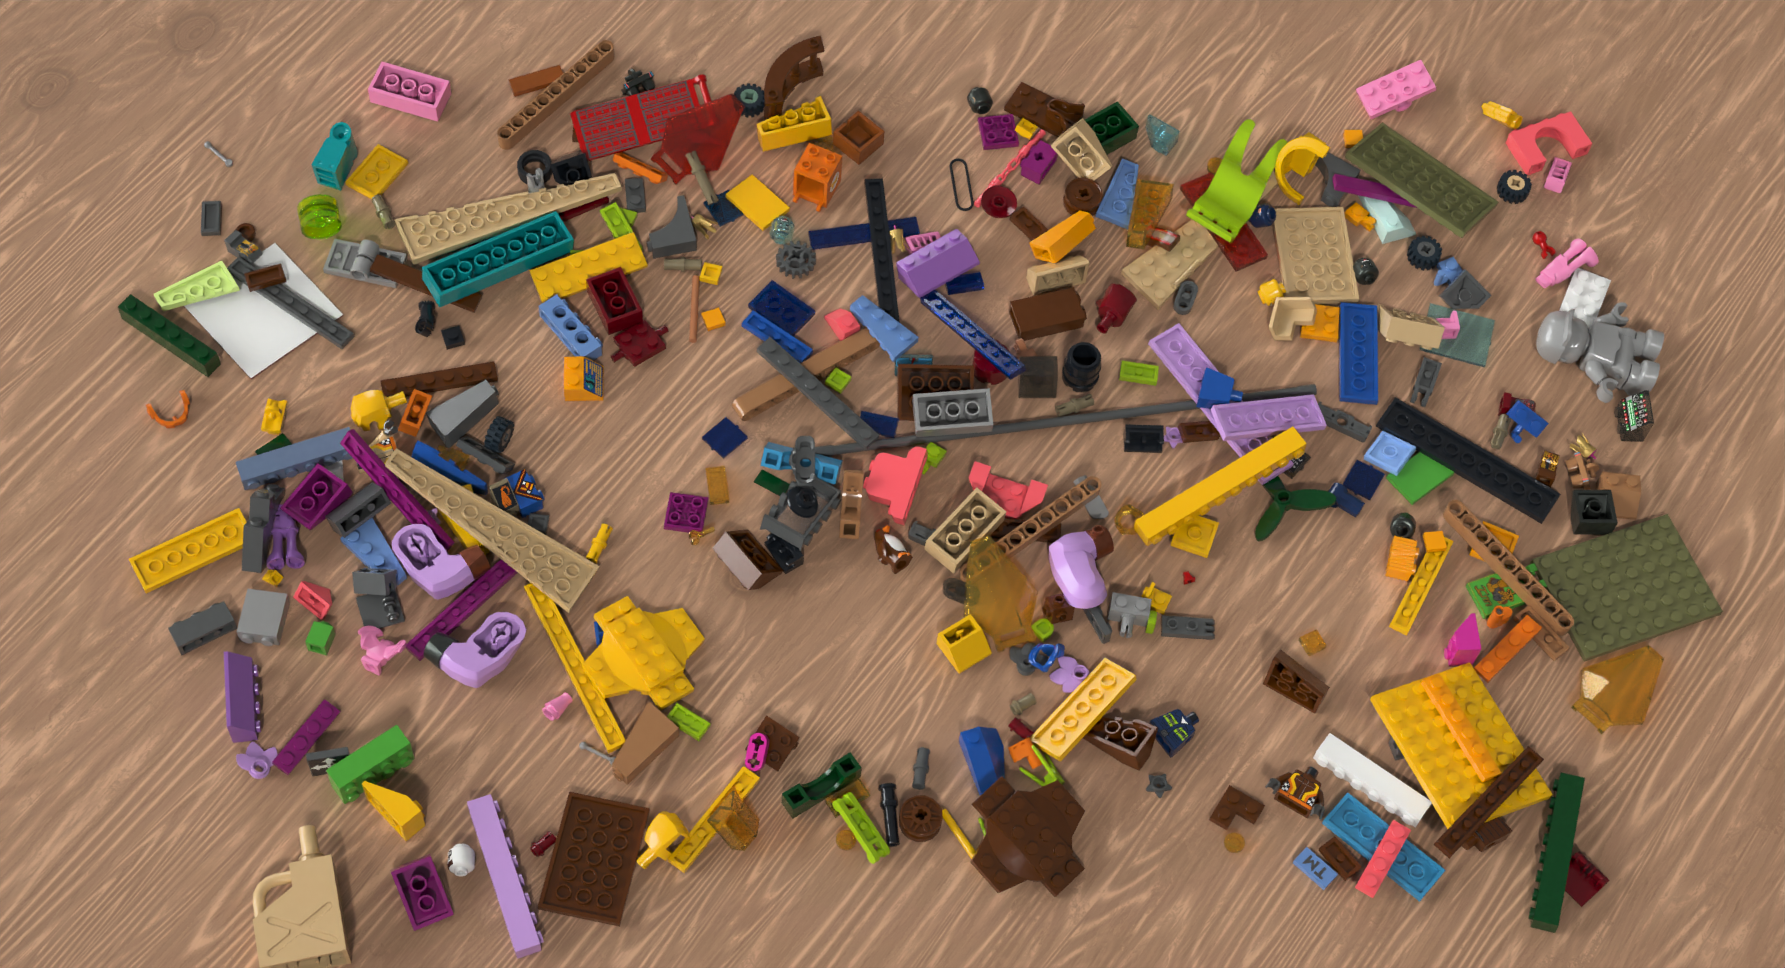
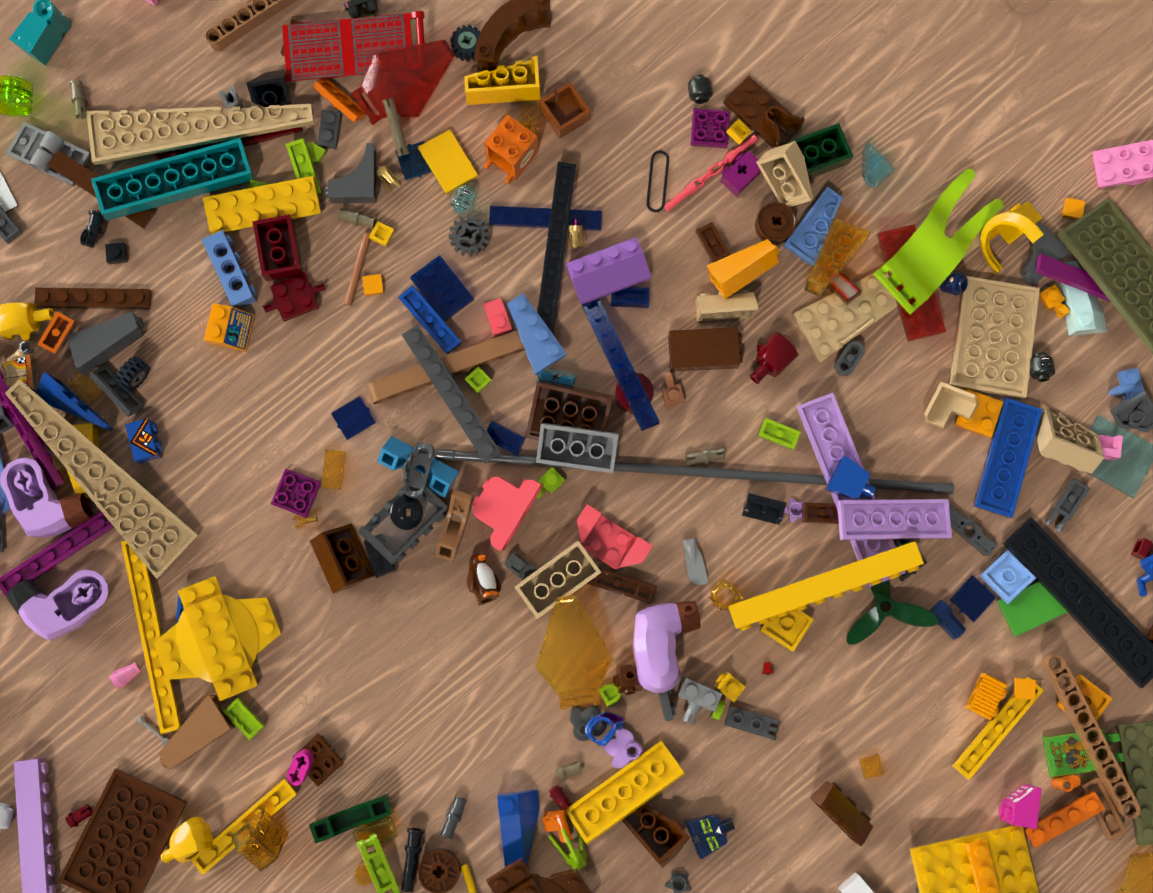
camera: 15 degrees right, 20 degrees up
(376, 172) = (83, 52): yellow tile -> none
(504, 498) = (119, 448): slope -> none
(534, 156) = (232, 66): black tyre -> none
(539, 522) = (152, 474): dark grey tile -> none
(599, 543) = (204, 509): yellow pin -> none
(771, 483) = (387, 478): dark green sticker -> none
(918, 239) = (596, 236): bright pink slope -> none
(960, 589) = (536, 640): clear smoke plate -> none
(964, 644) = (527, 698): yellow slope -> none
(1001, 196) = (691, 203): dark red dish -> none
(1039, 378) = (675, 419): clear smoke slope -> none
(1050, 512) = (633, 591): medium nougat beam -> none
(1082, 367) = (729, 411): black piece -> none
(1213, 165) = (920, 212): clear yellow tile -> none
(1271, 290) = (938, 371): yellow head -> none
(1403, 525) = (997, 663): pearl dark grey head -> none
(1422, 259) = (1105, 363): black wheel -> none
(1500, 431) = (1127, 577): dark tan axle -> none

